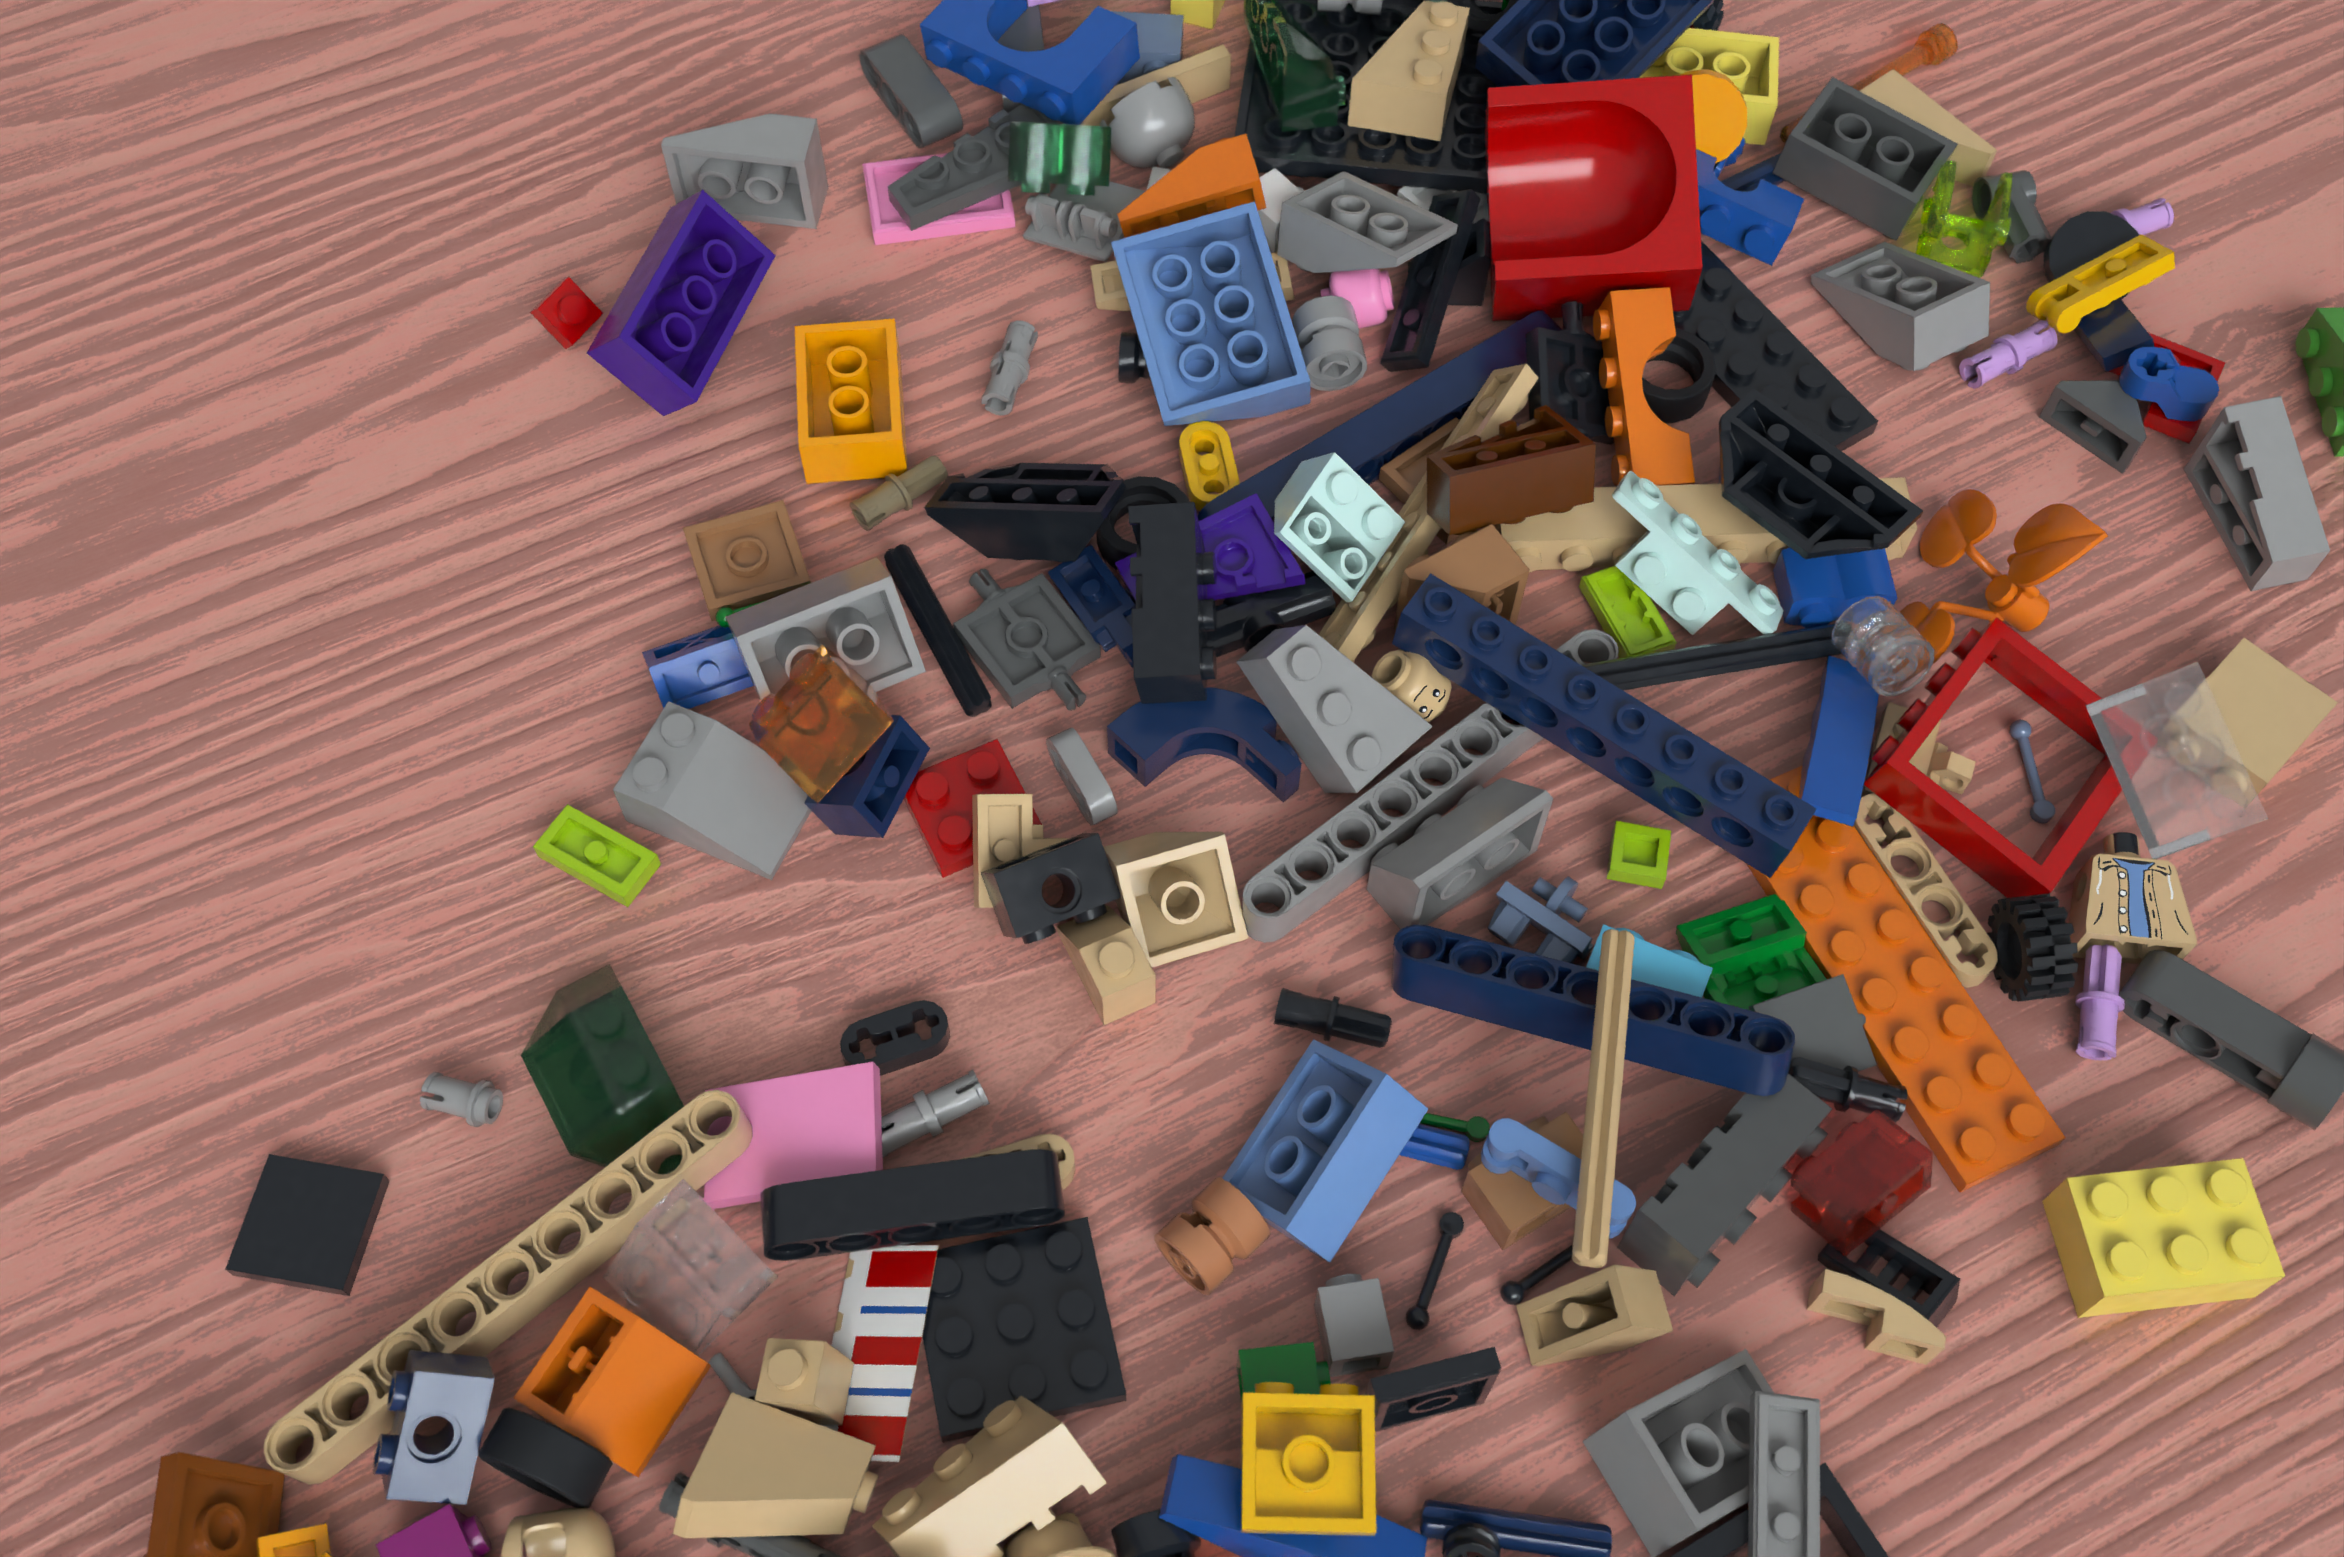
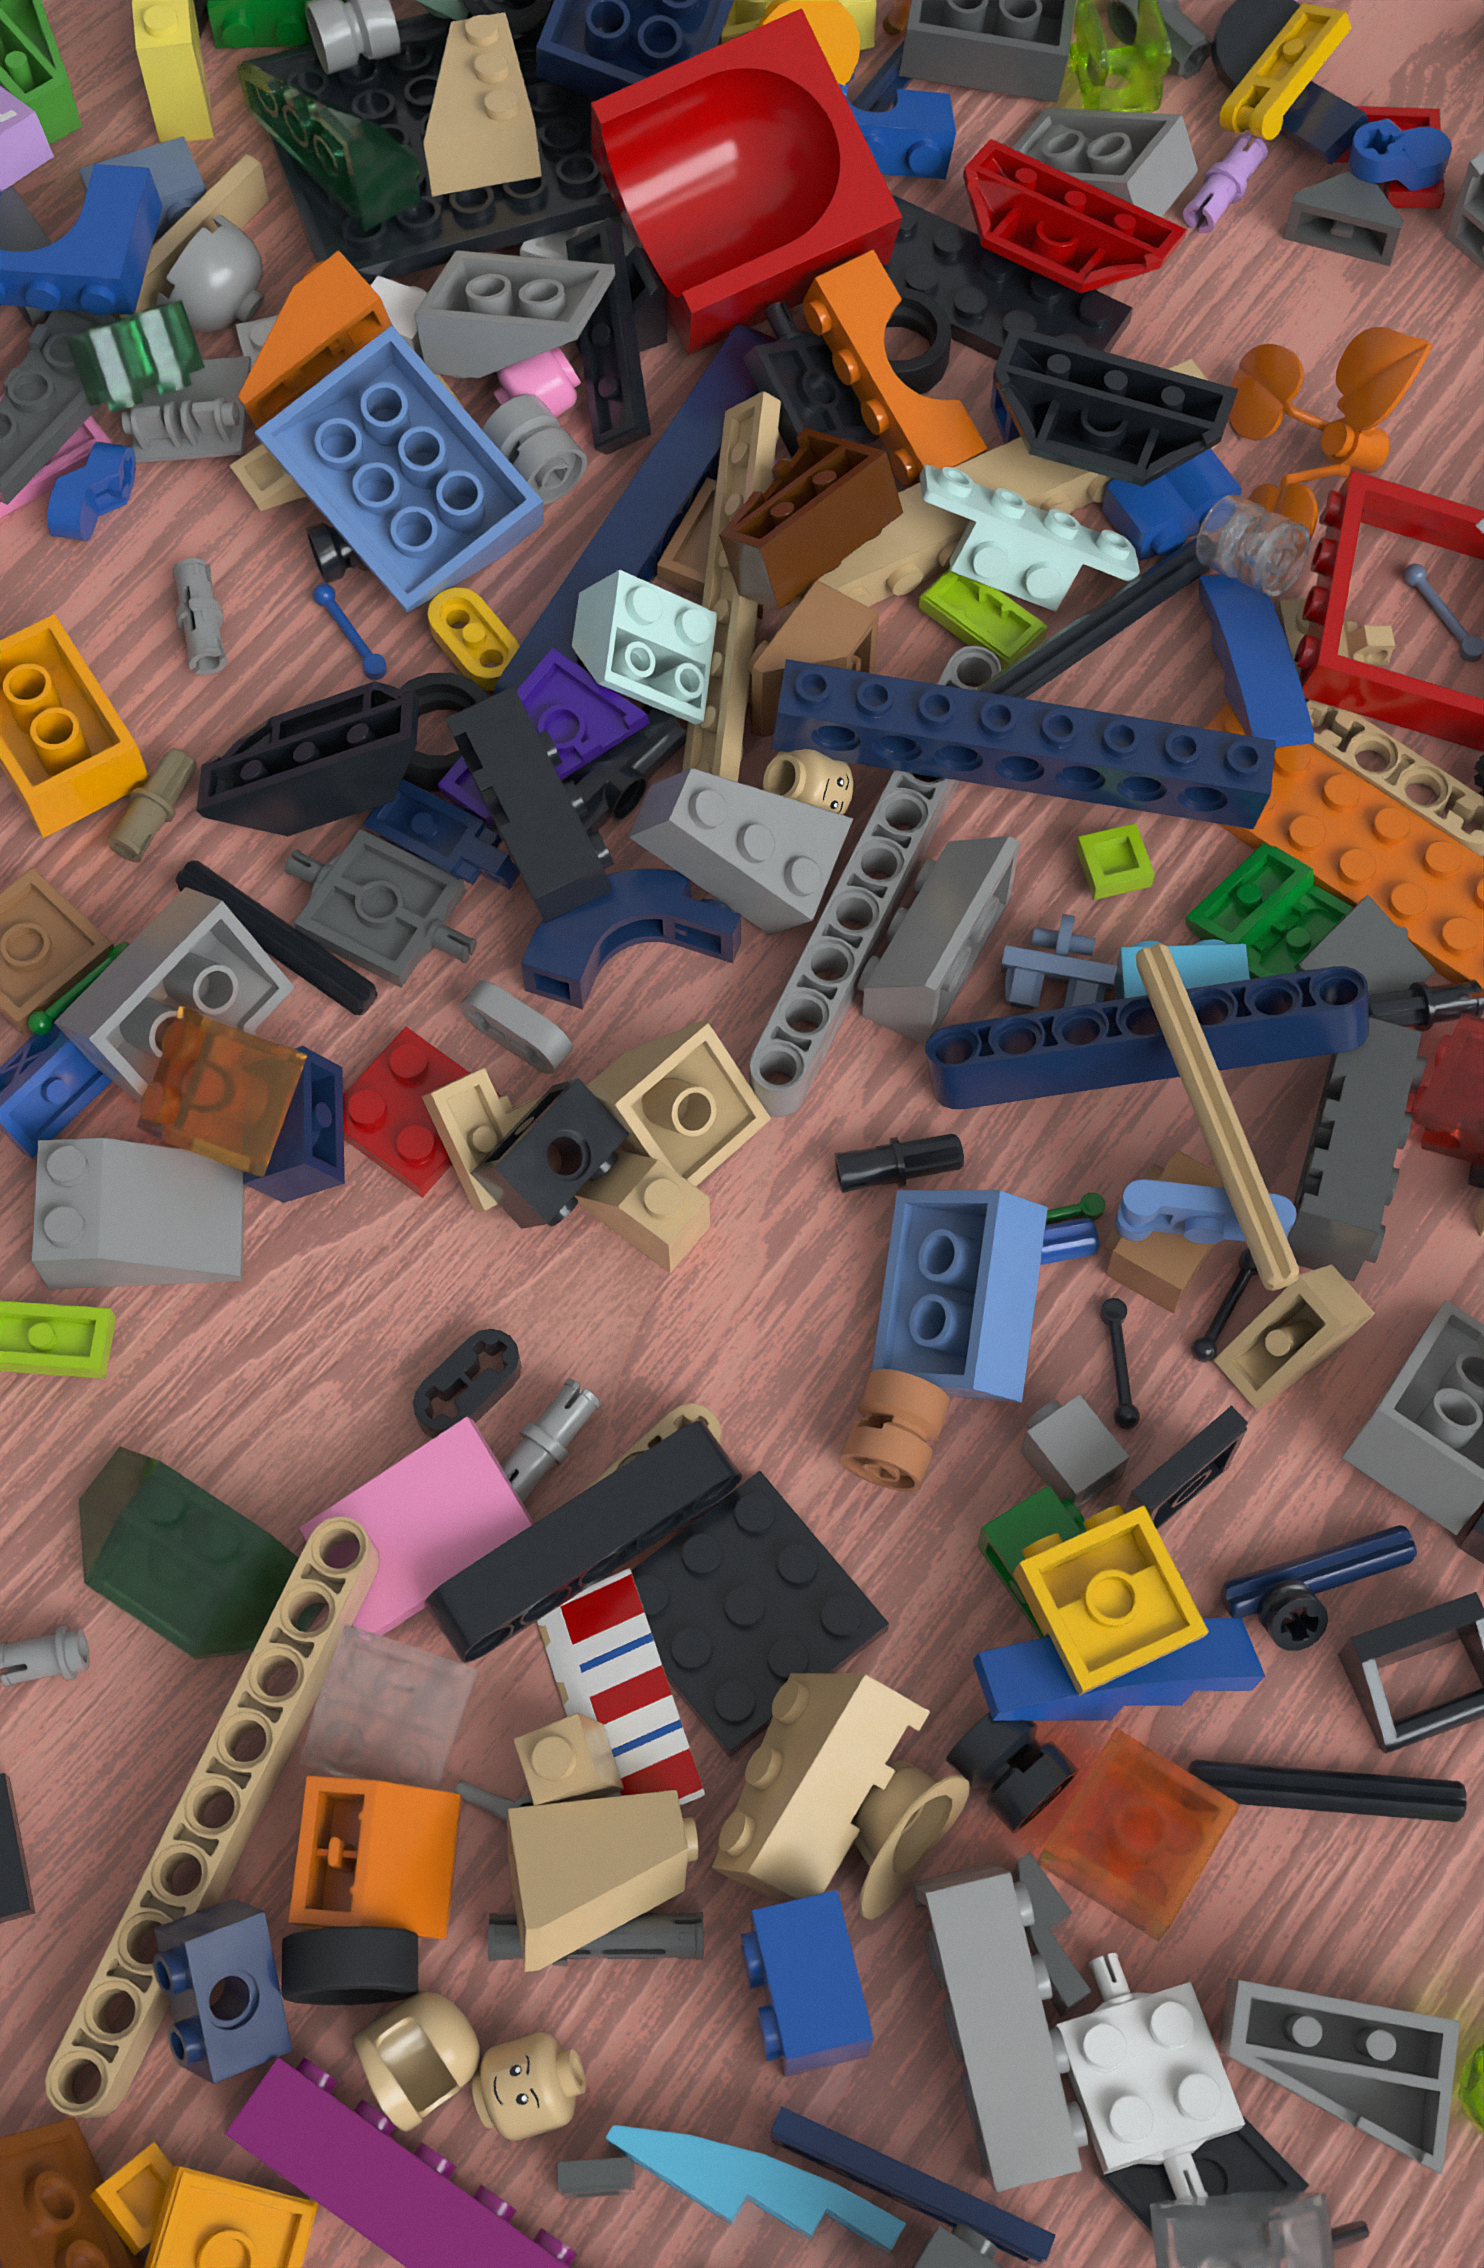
camera: 25 degrees left, 5 degrees up
(979, 245) = (91, 491): none -> blue piece
(1122, 457) = (373, 664): none -> blue hinge
(1847, 330) = (1062, 222): none -> red wedge

